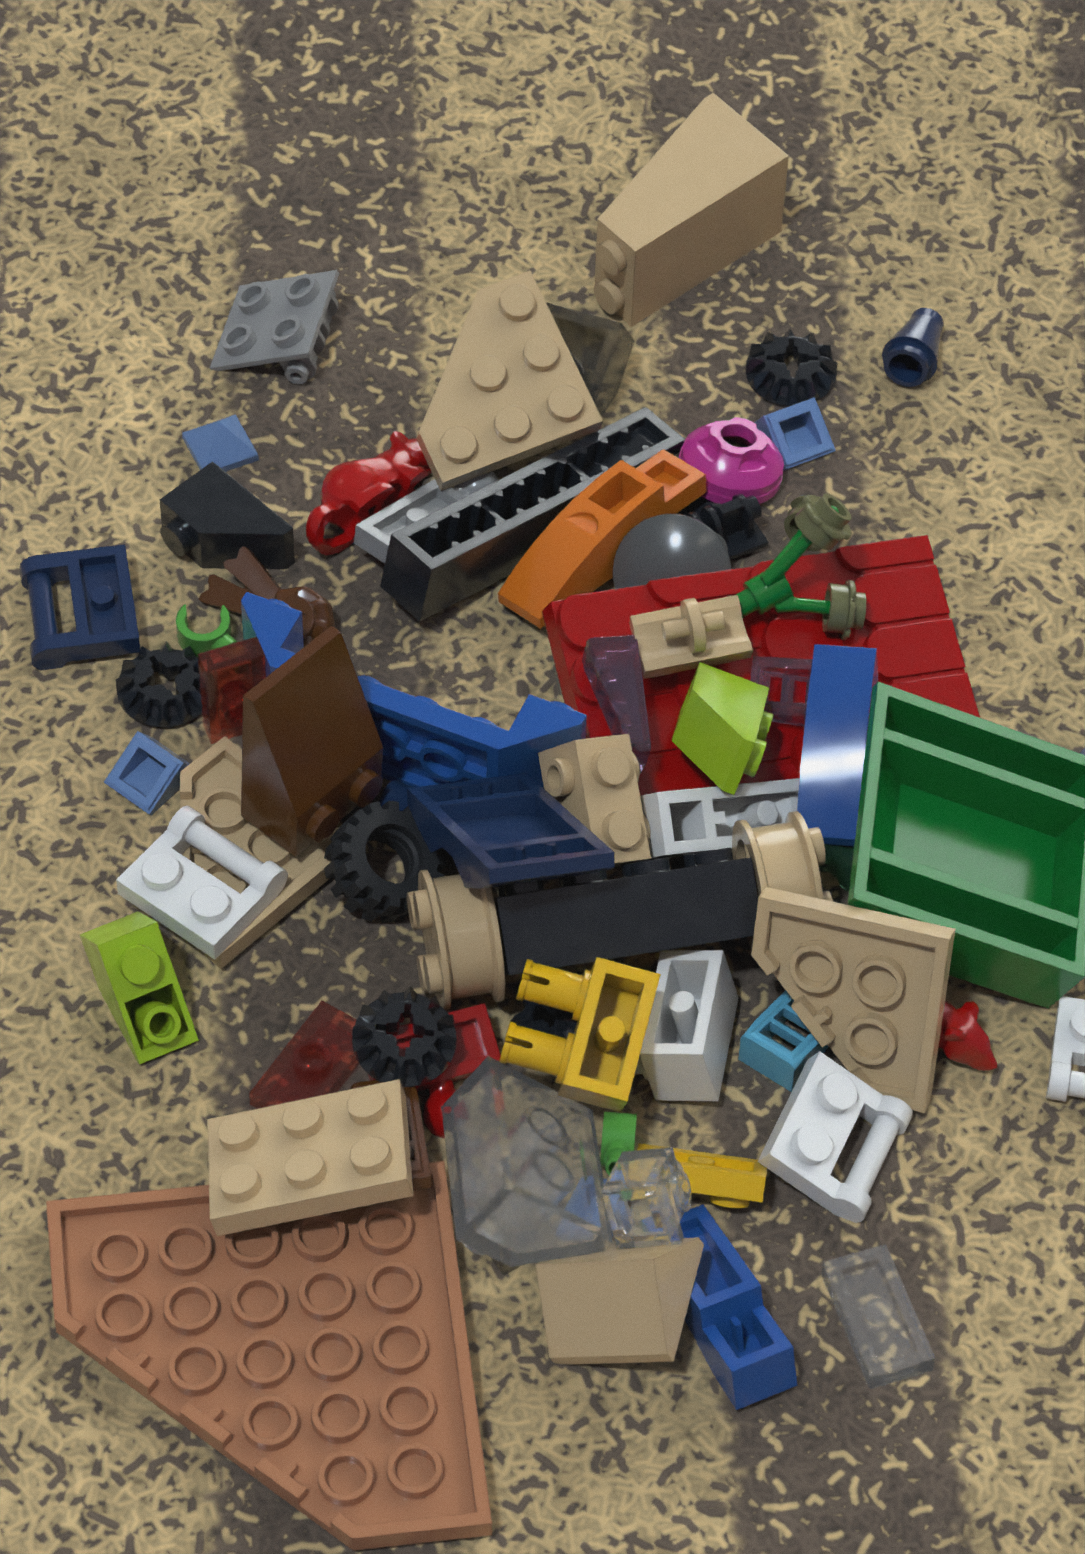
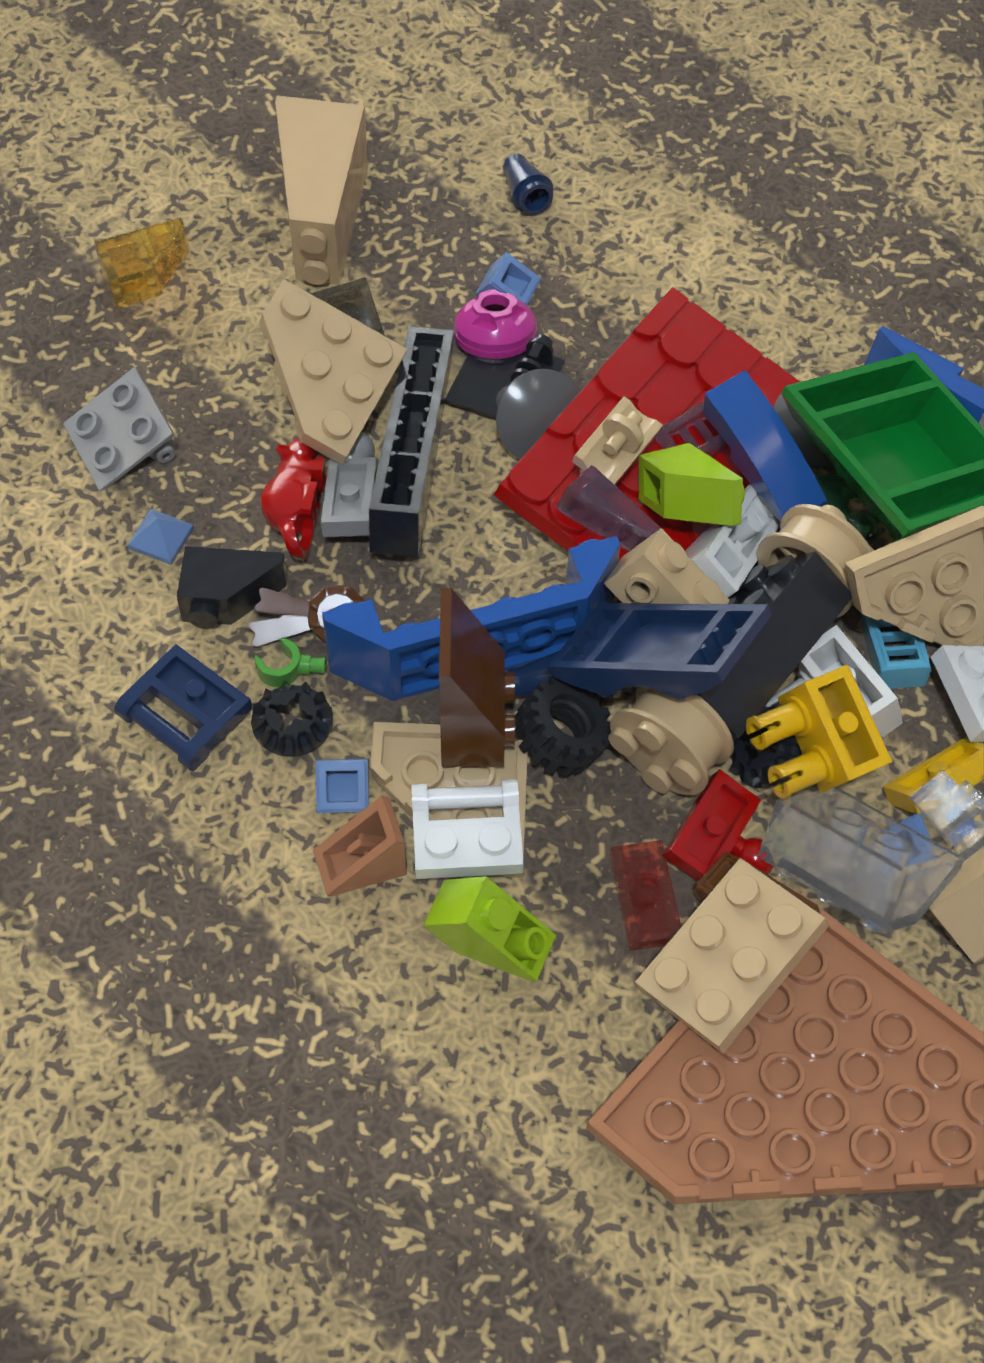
camera: 40 degrees left, 5 degrees up
(102, 837) = (363, 850): none -> nougat slope
(224, 679) = (359, 685): clear red plate -> none
(425, 1056) = (701, 851): black gear -> none
(455, 180) = (141, 261): none -> clear yellow slope
(581, 542) = (471, 426): orange slope -> none
(617, 1137) = (881, 793): bright green piece -> none
(772, 380) = (465, 258): black gear -> none
(811, 526) = (605, 326): plant -> none

